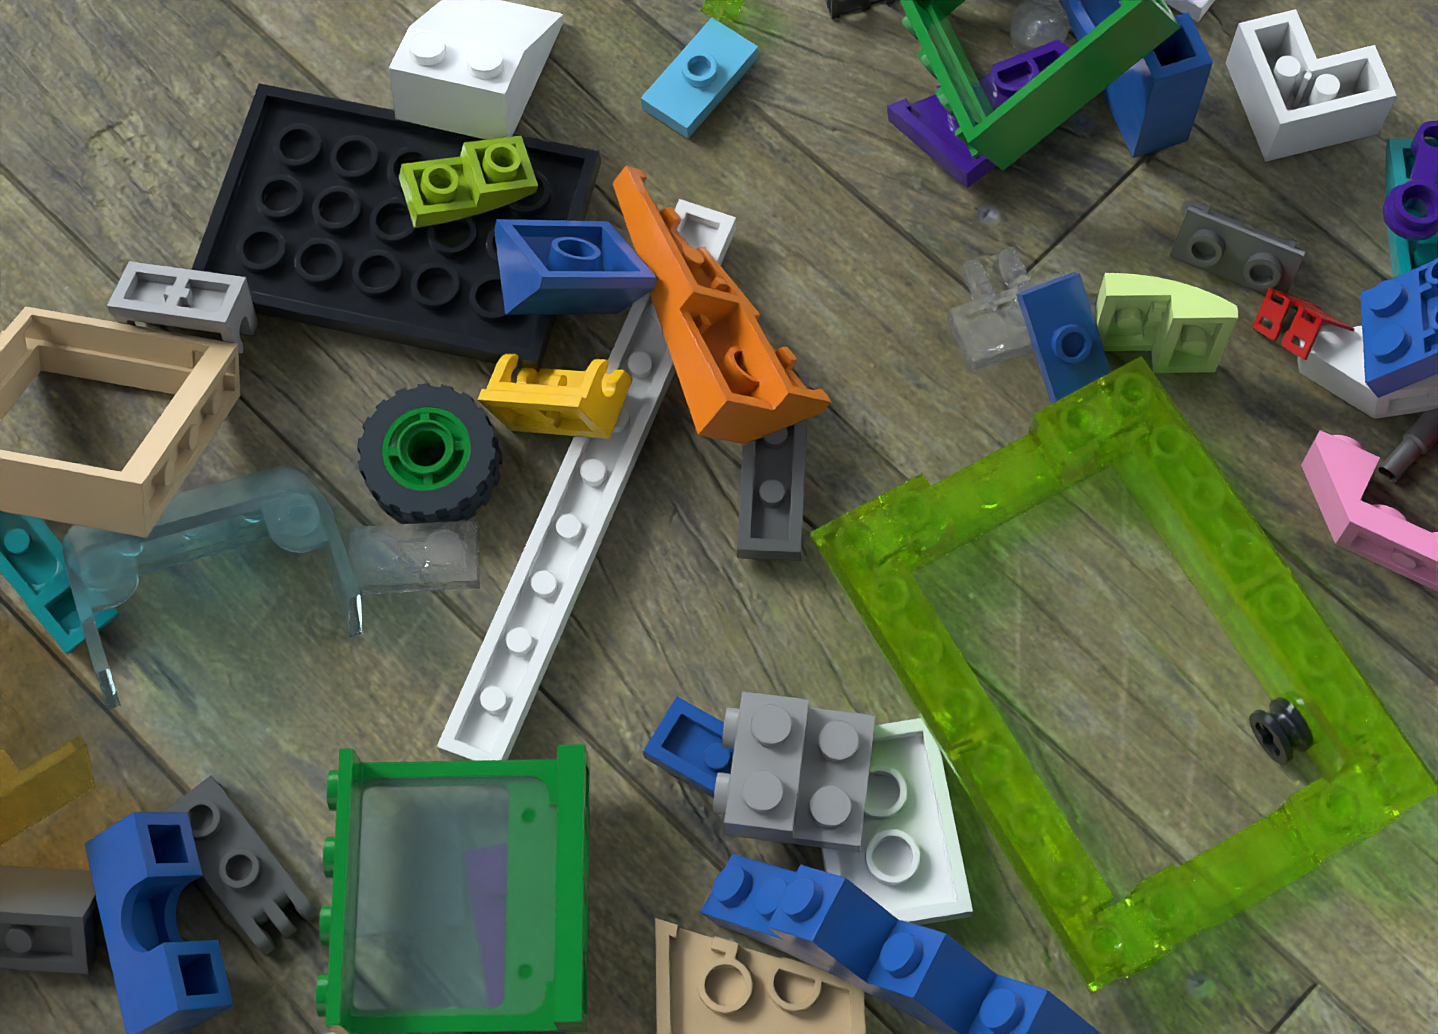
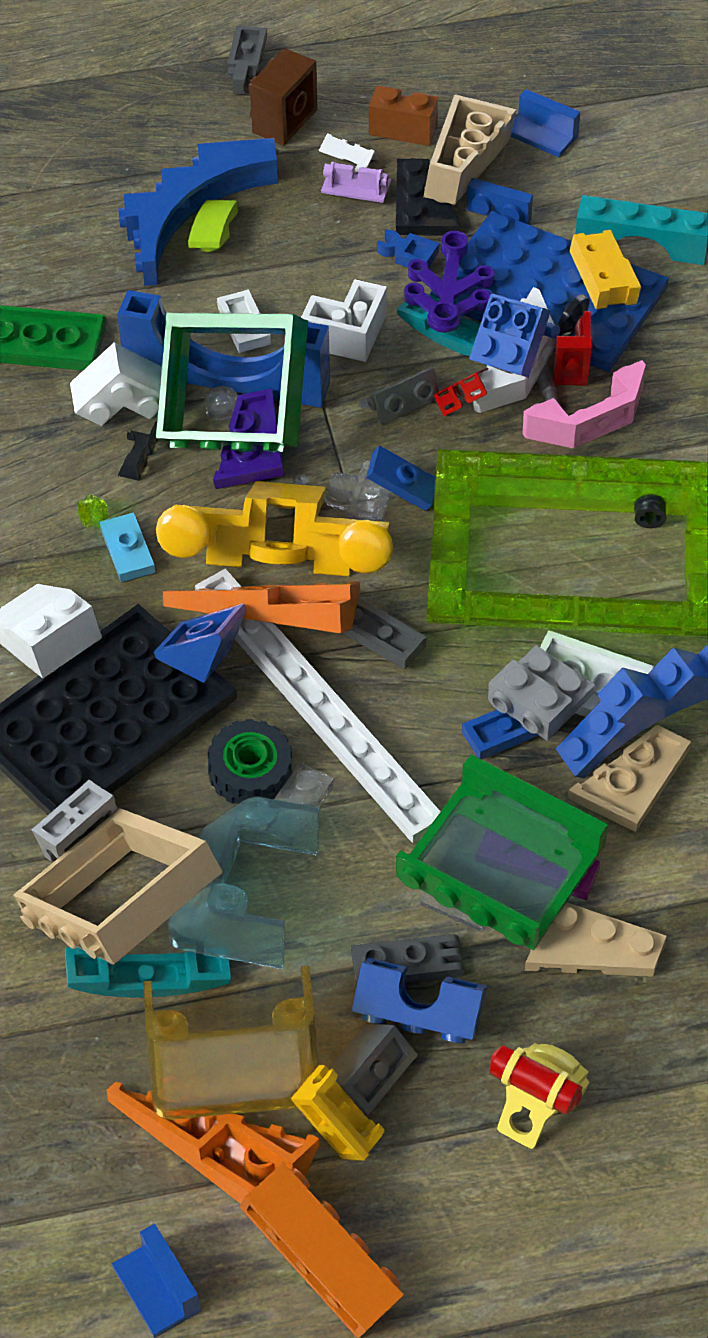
camera: 60 degrees left, 15 degrees down
(478, 181) = (112, 662): lime slope -> none
(557, 399) = (268, 687): yellow hinge -> none
(879, 345) = (230, 533): none -> yellow piece
(1170, 318) = (427, 430): yellowish green slope -> none

